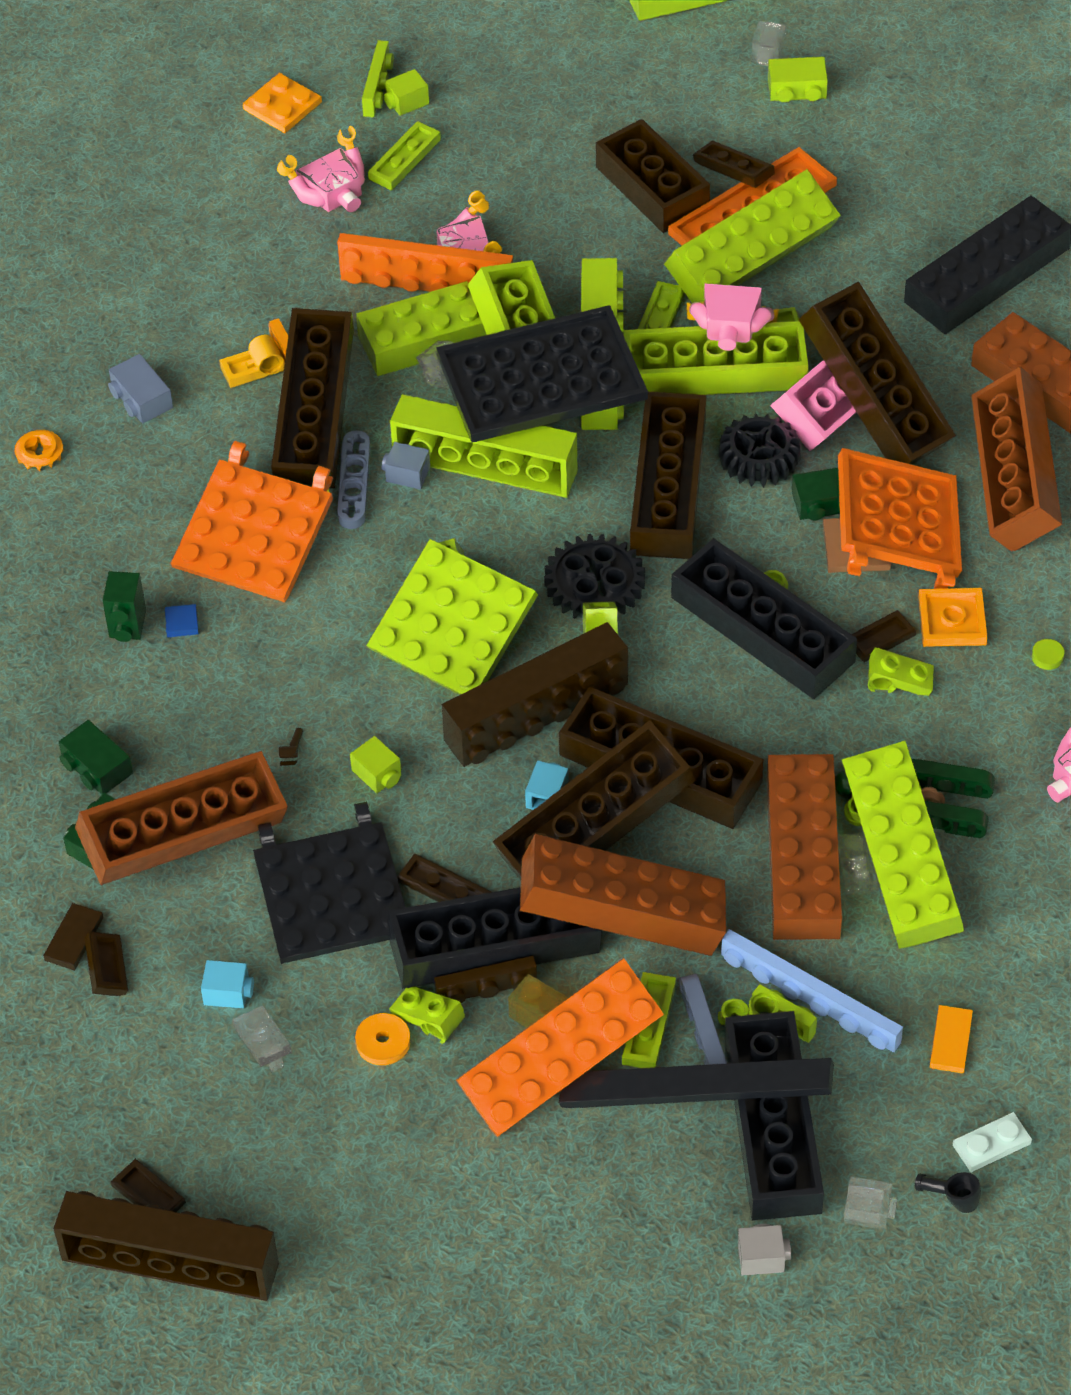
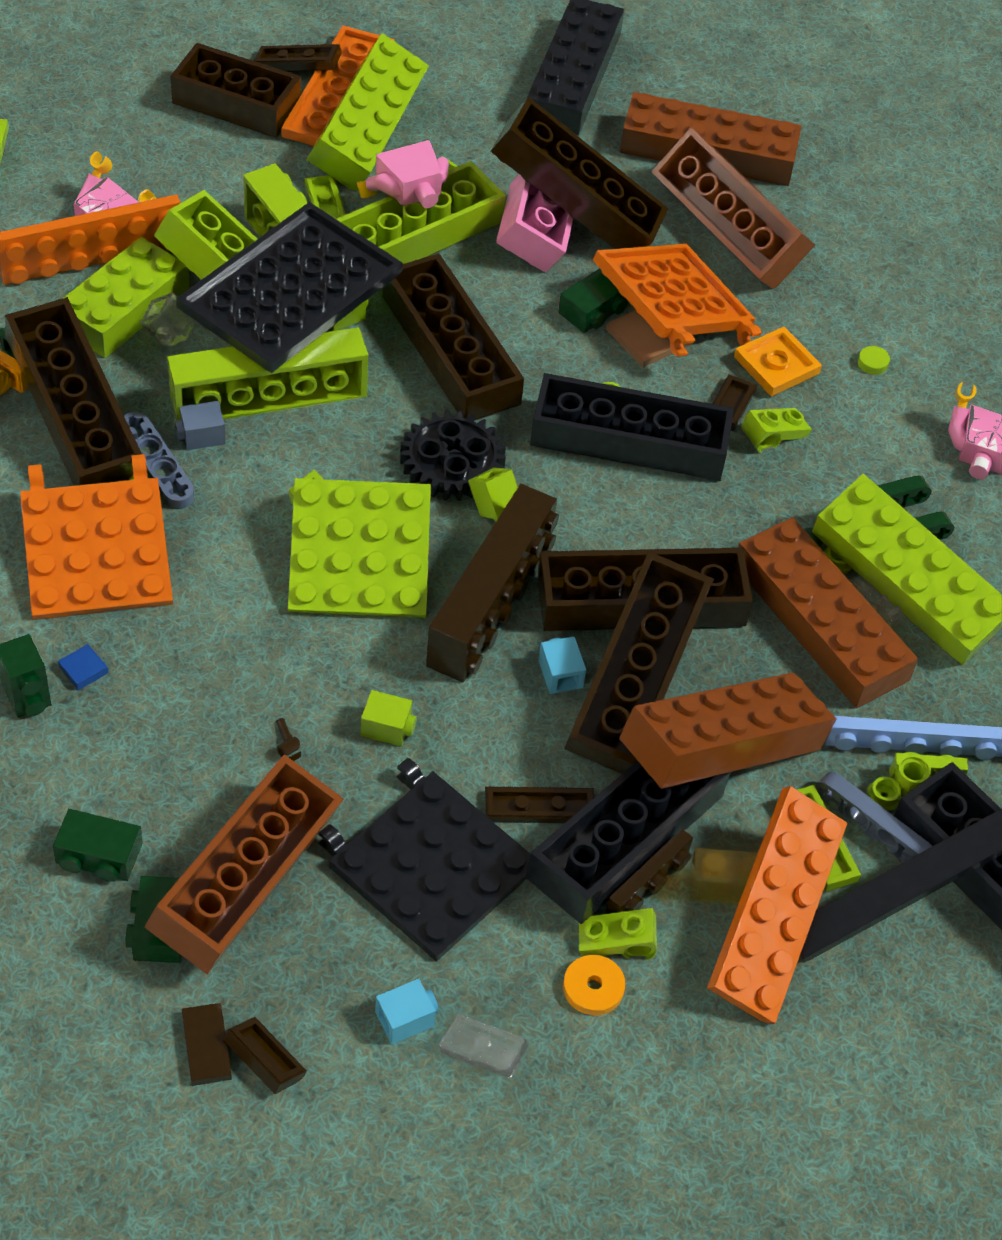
camera: 40 degrees left, 0 degrees up
(759, 442) = (526, 289): black gear -> none

